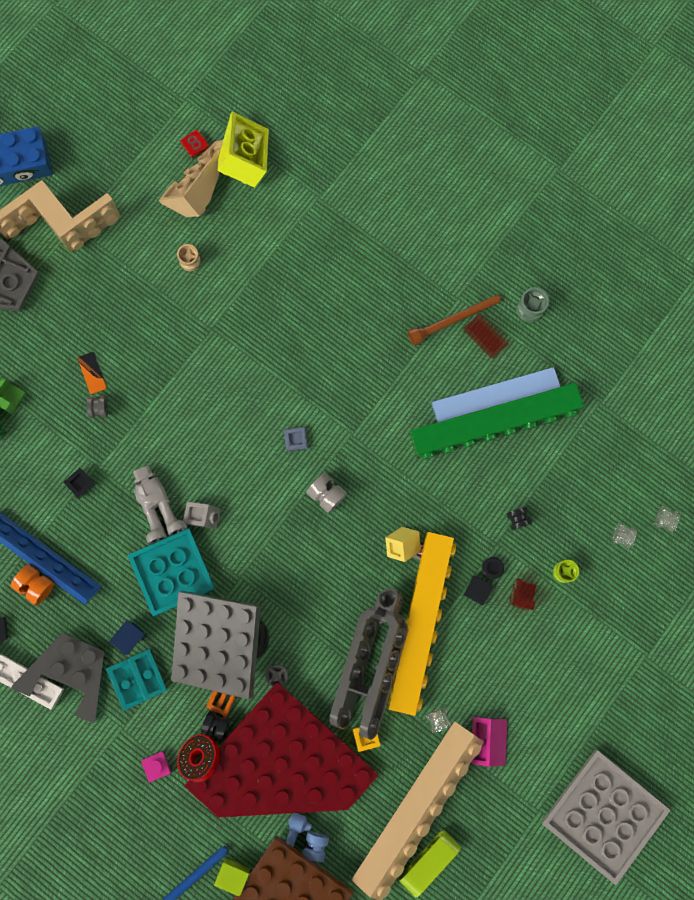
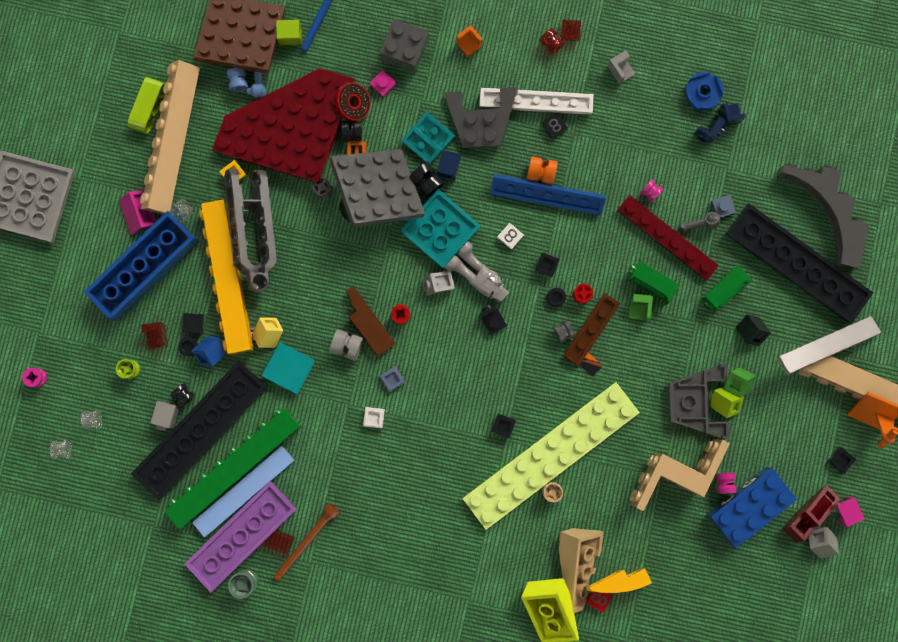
camera: 160 degrees right, 5 degrees up
(16, 188) = (725, 482): none -> dark pink wheel
(36, 770) = (469, 41): none -> orange panel
(53, 435) = (585, 291): none -> red wheel
(68, 397) = (591, 329): none -> reddish brown tile
(87, 446) = (556, 297): none -> black tile
(102, 531) = (510, 236): none -> white tile
(110, 798) = (404, 45): none -> dark grey brick
(157, 623) = (432, 181): none -> black wheel
(164, 453) = (492, 319): none -> black bracket
(165, 146) = (621, 582): none -> yellow slope
(171, 294) = (550, 455): none -> yellowish green plate
(205, 342) = (503, 425): none -> black plate
(257, 504) = (400, 317): none -> red wheel
(294, 505) = (368, 324): none -> reddish brown piece
(332, 409) = (373, 417): none -> white tile
(397, 498) = (288, 367): none -> teal slope
(472, 551) = (209, 351): none -> blue panel
(507, 675) = (141, 266): none -> blue brick
(515, 475) = (199, 430): none -> black plate
(516, 352) = (240, 536): none -> medium lavender plate
(545, 505) = (165, 415): none -> light grey brick
(663, 607) = (39, 377): none -> dark pink wheel

